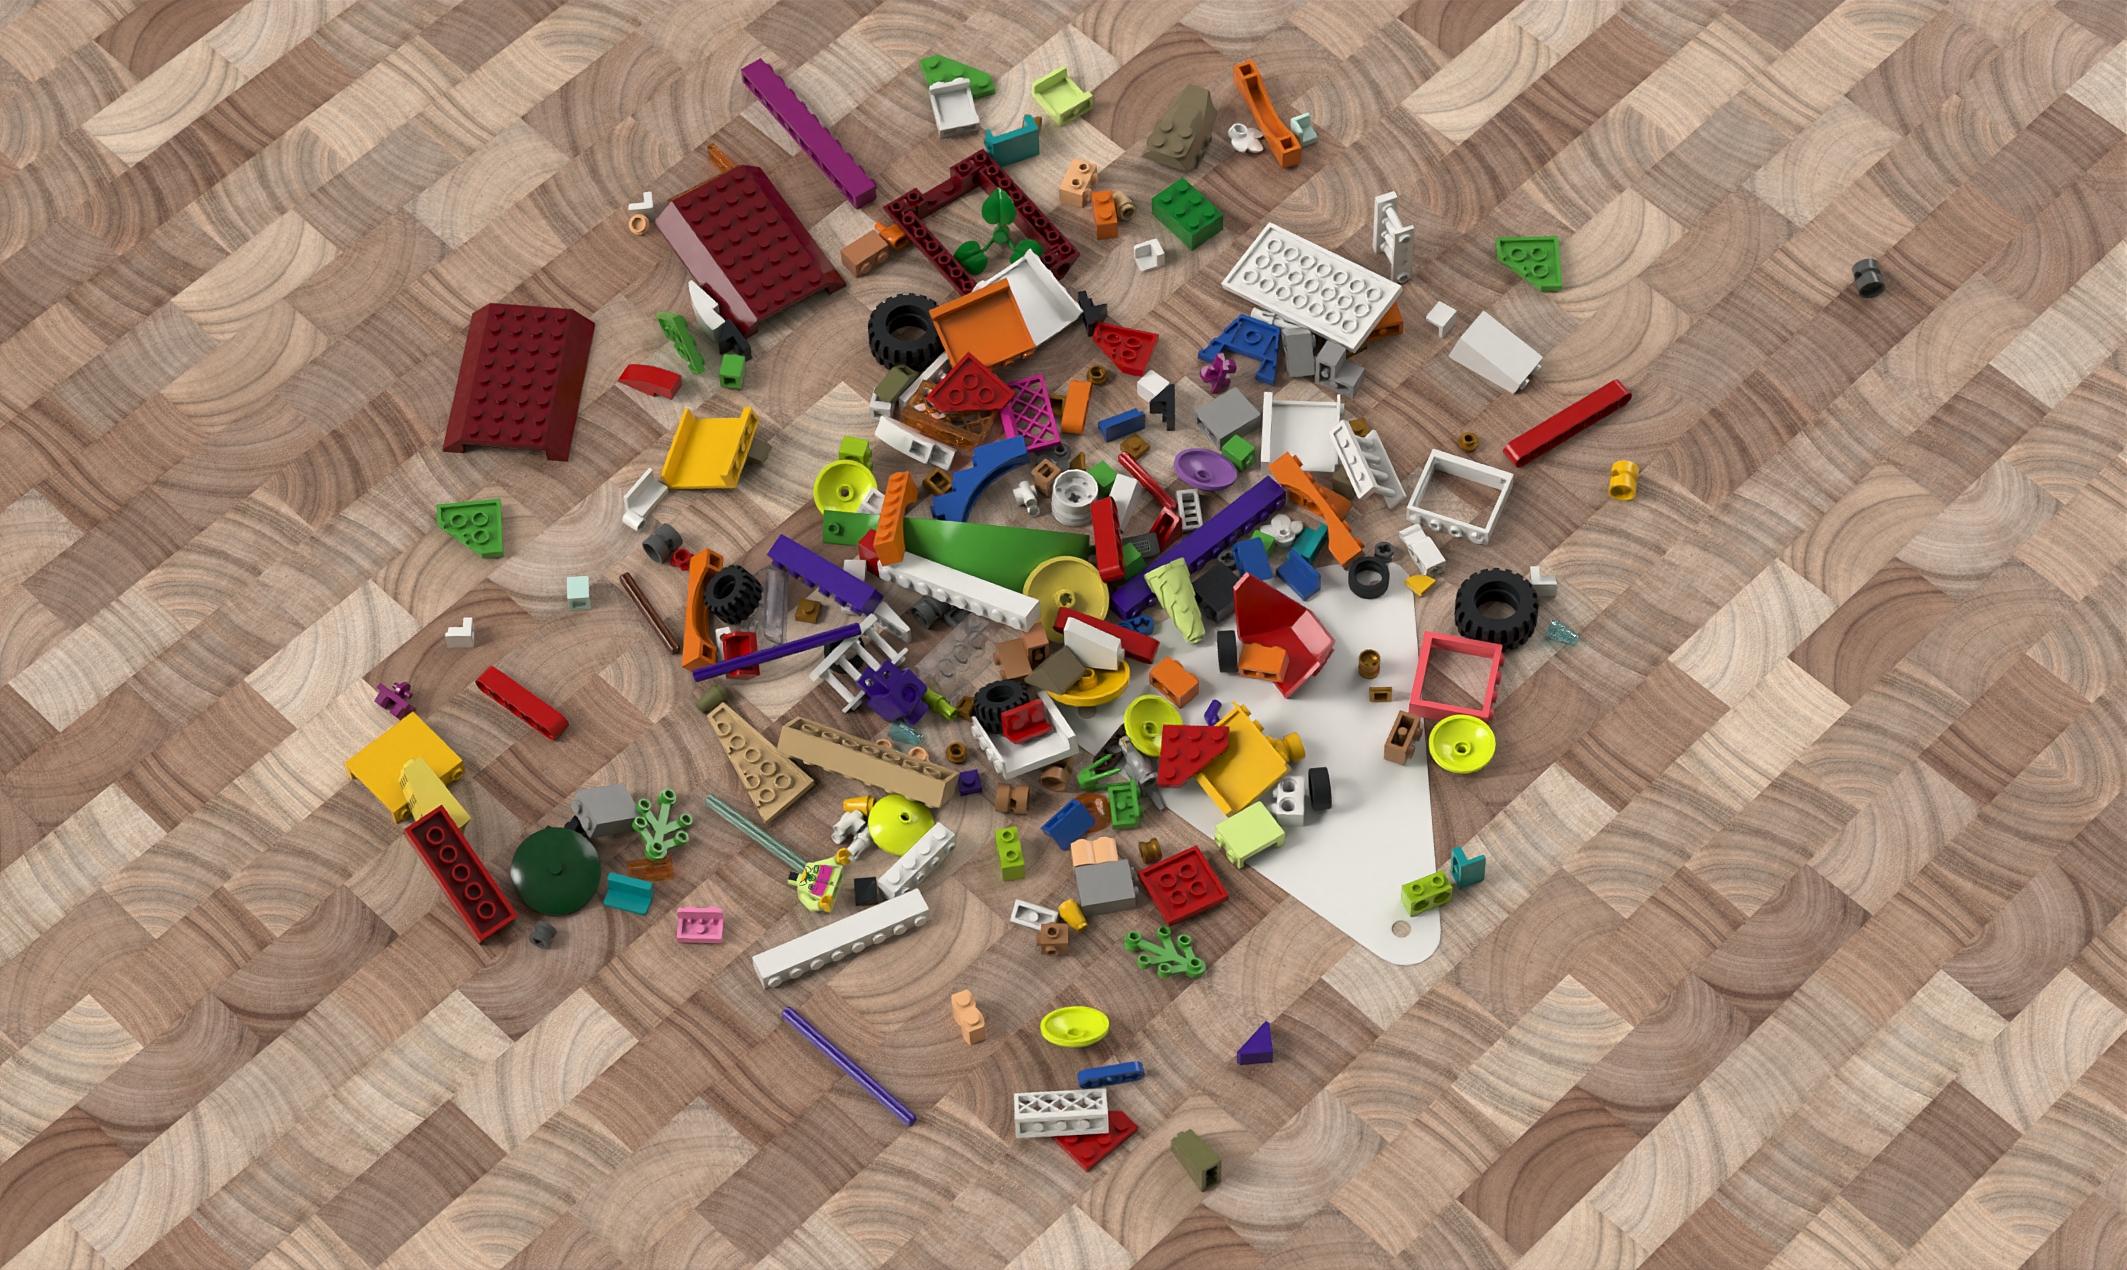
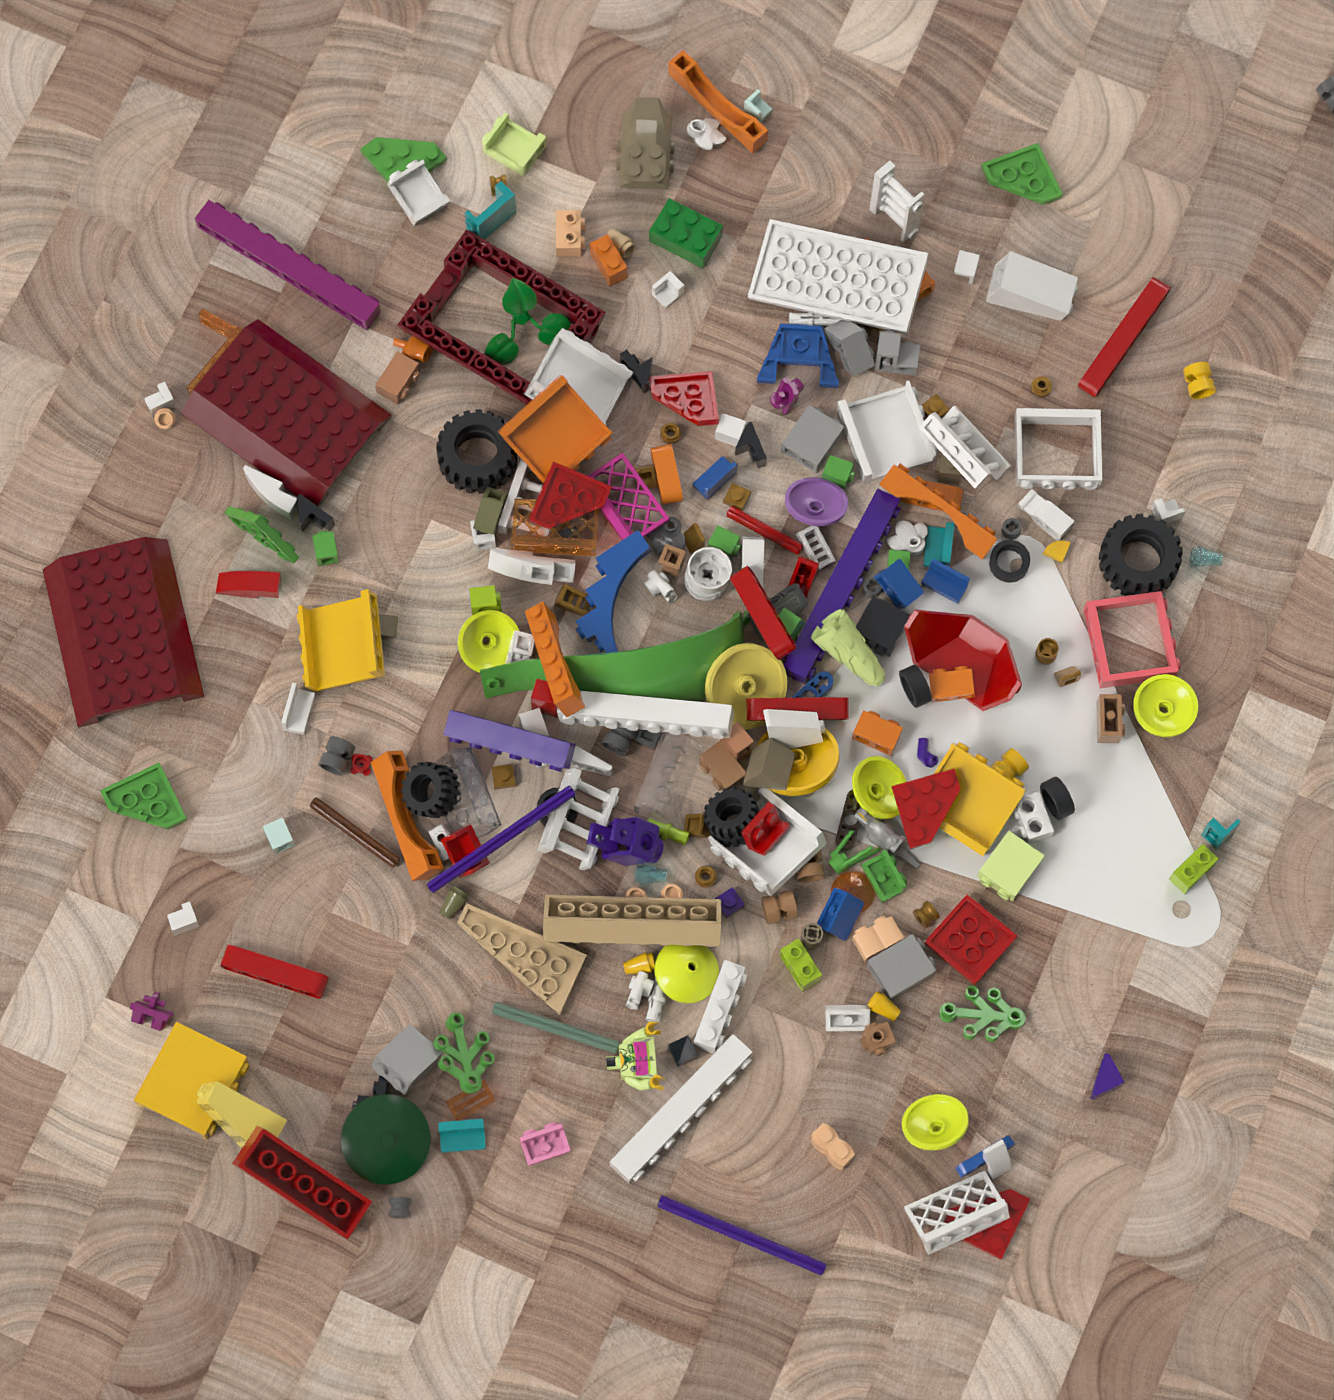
camera: 25 degrees left, 15 degrees up
(634, 521) = (298, 739): white hinge -> none
(1032, 833) = (809, 939): none -> dark tan wheel
(1119, 1077) = (997, 1159): none -> white slope
(1197, 1159) = (1098, 1213): olive slope -> none

